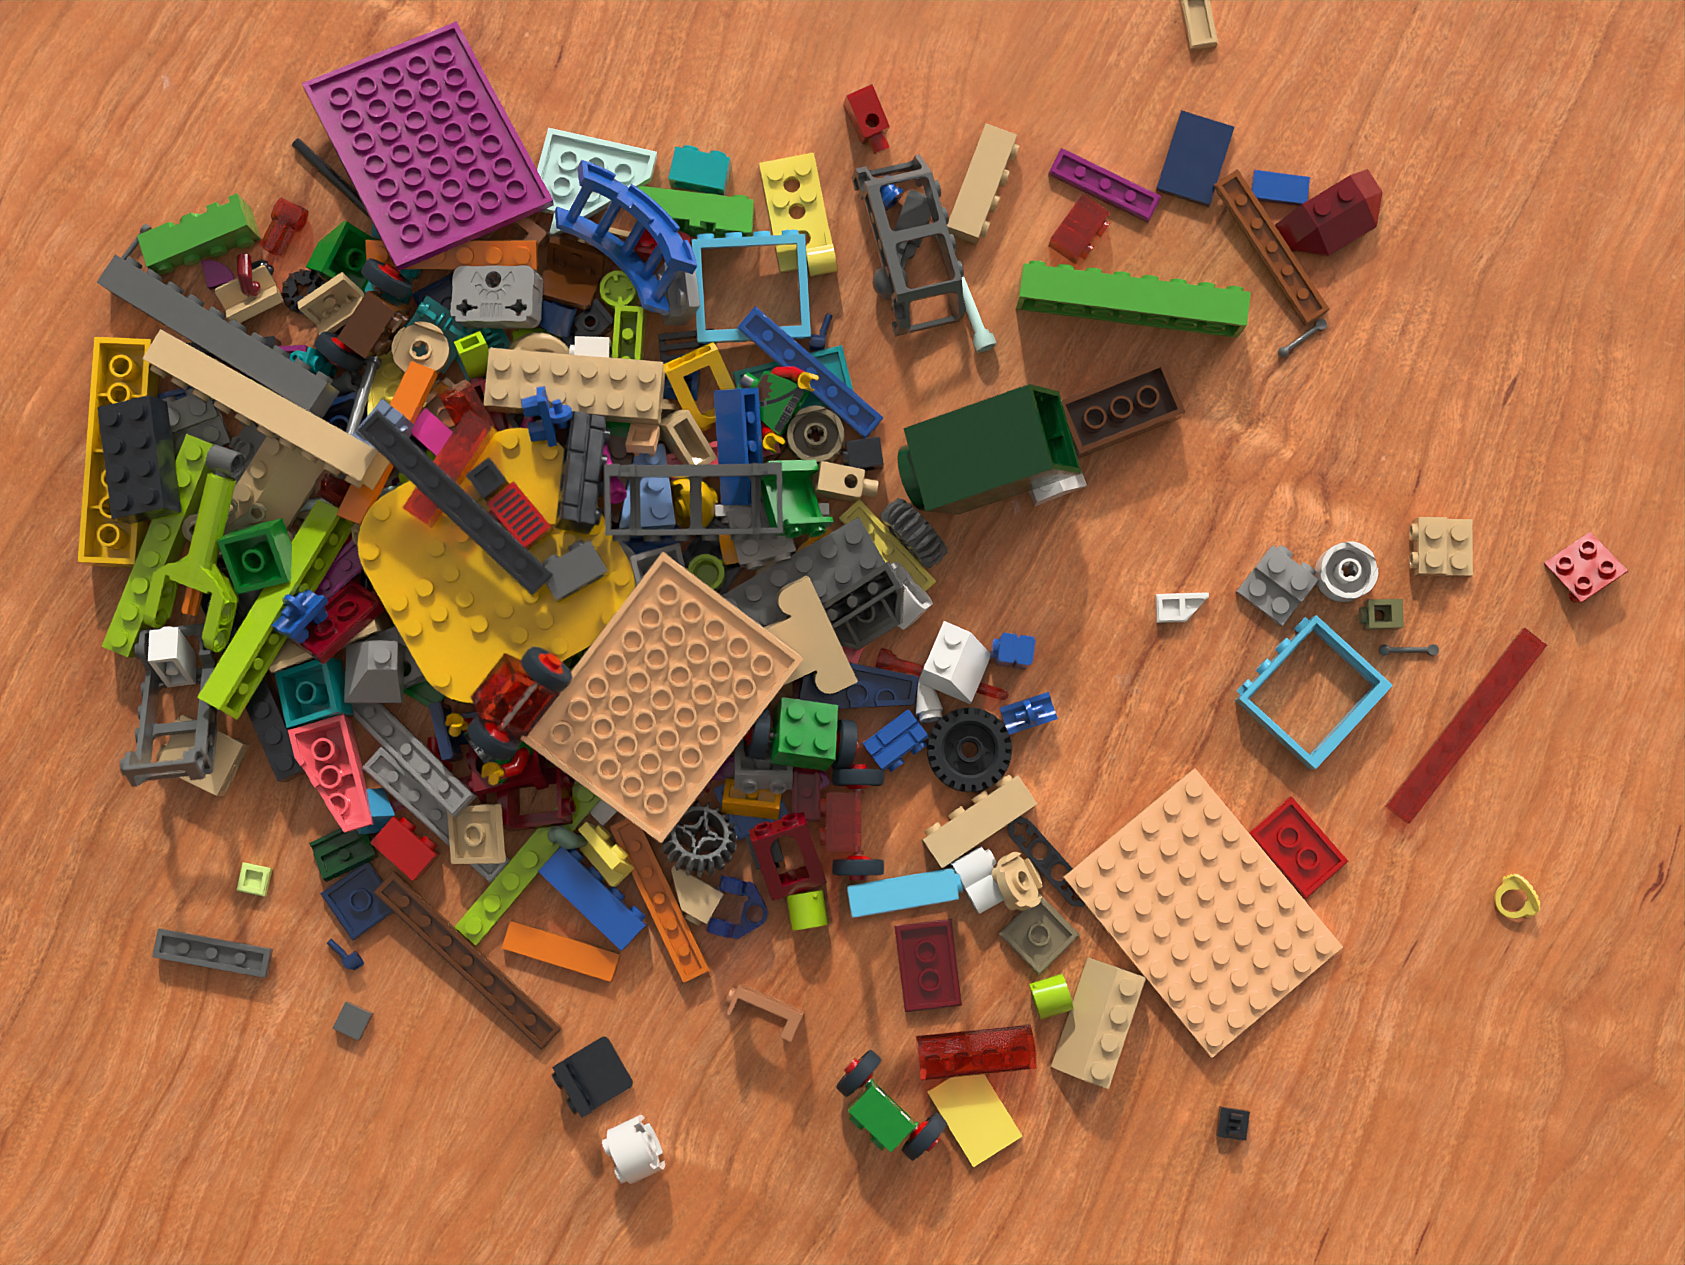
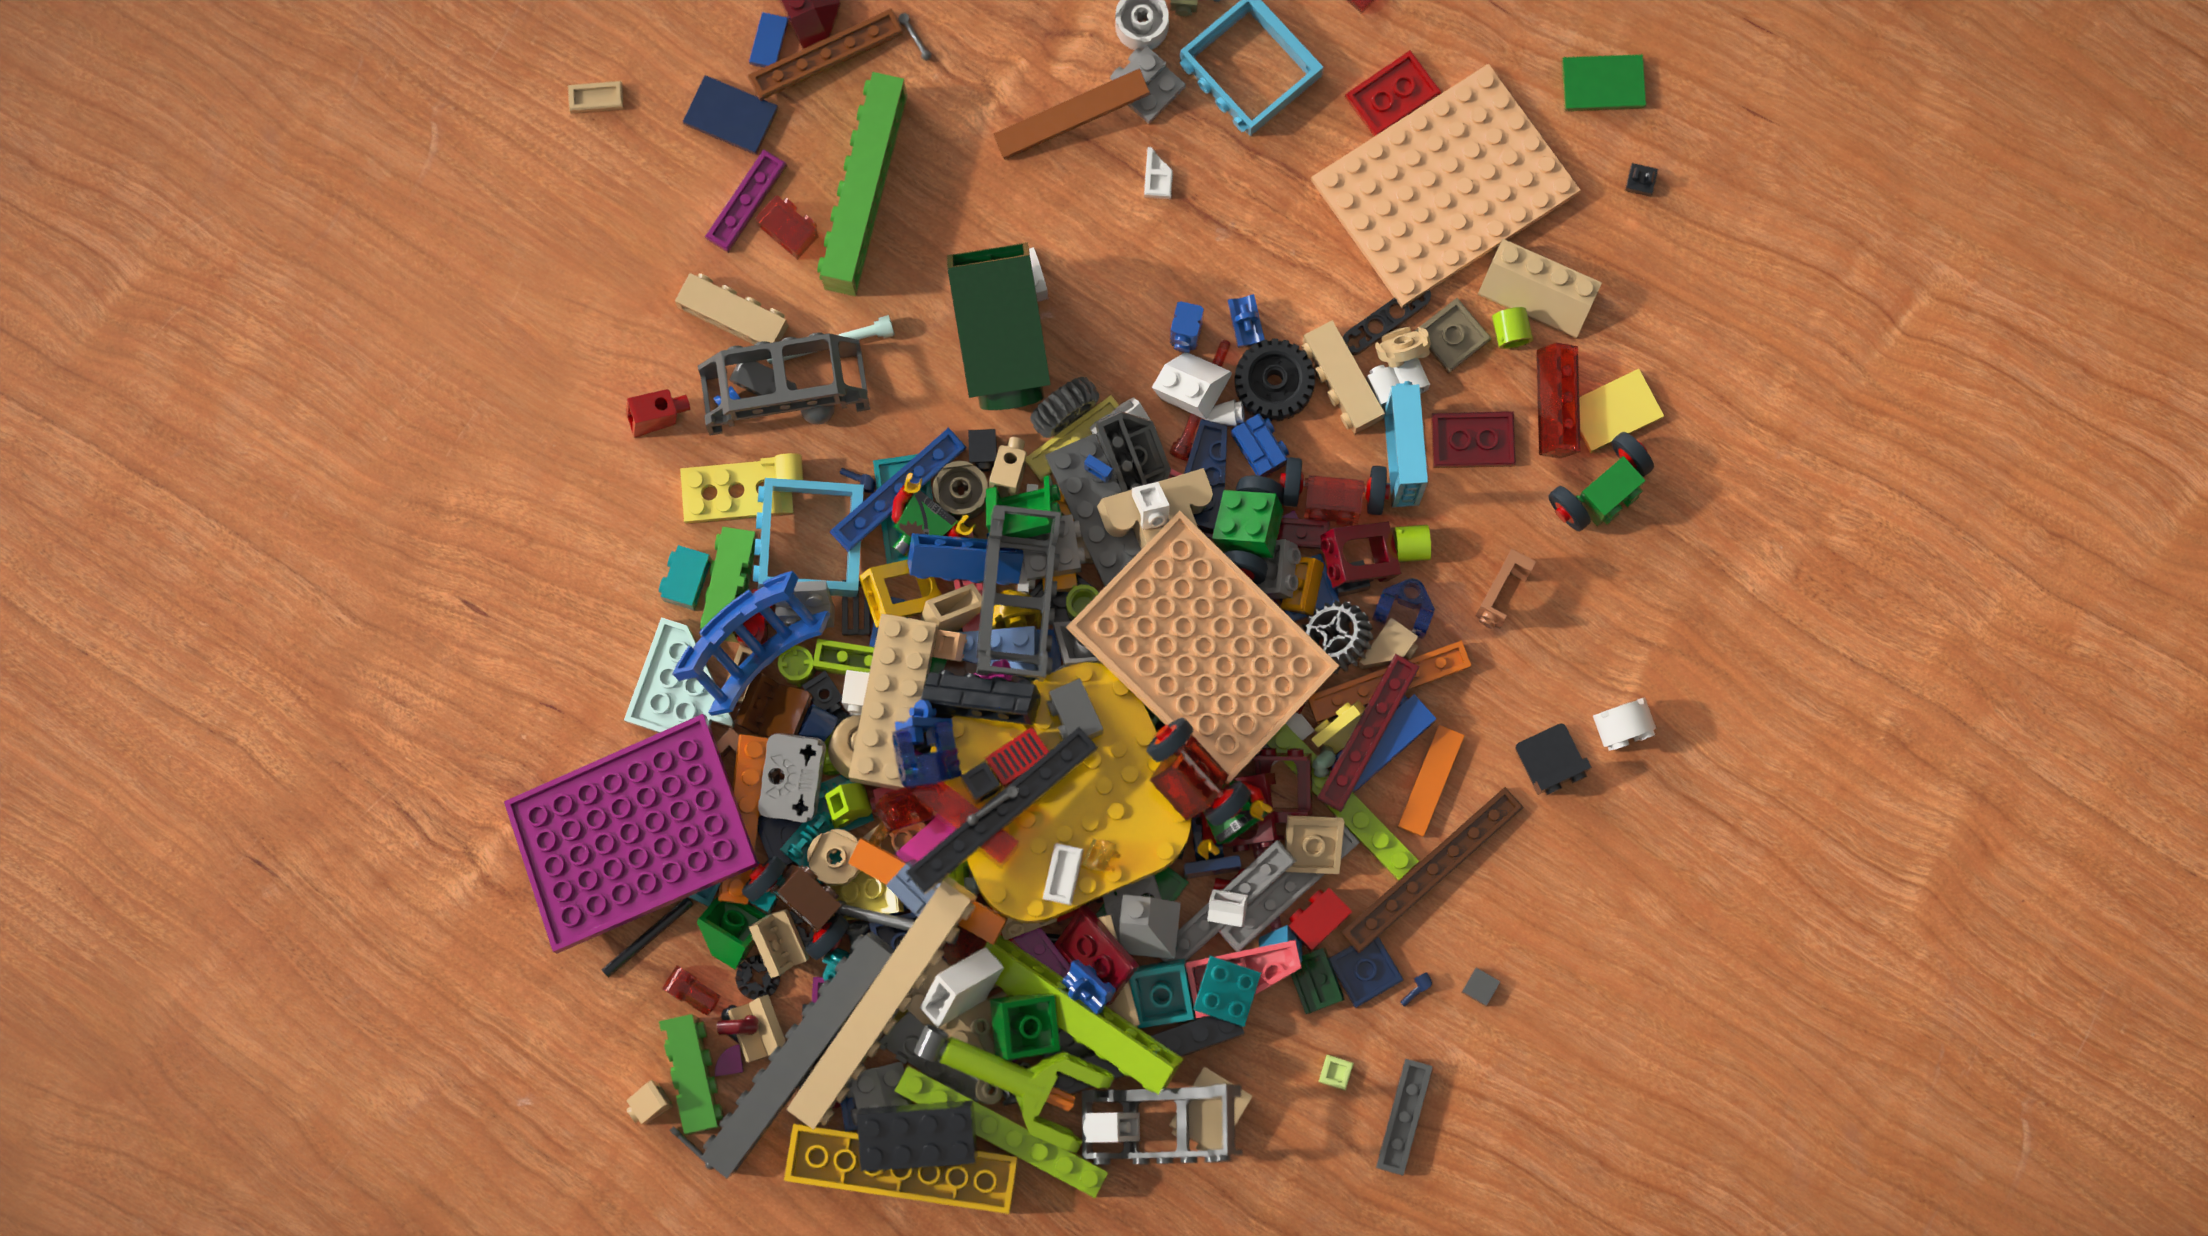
camera: 85 degrees left, 5 degrees down
(167, 199) = (648, 1103): none -> tan slope
(287, 487) = (961, 987): none -> white brick
(312, 758) = (1227, 991): none -> teal hinge
(400, 751) = (1227, 908): none -> white piece
(406, 576) = (1063, 874): none -> white tile
(425, 610) = (1099, 855): none -> clear yellow tile
(472, 510) = (1012, 792): none -> dark grey hinge
(492, 426) = (927, 767): none -> clear blue piece
(598, 880) = (1368, 733): none -> dark red tile
(806, 629) = (1151, 505): none -> white bracket
(845, 571) = (1098, 468): none -> blue tile
(1122, 409) = (965, 201): reddish brown brick -> none
(1234, 509) = (1072, 114): none -> dark orange tile
(1337, 1074) = (1603, 82): none -> green tile

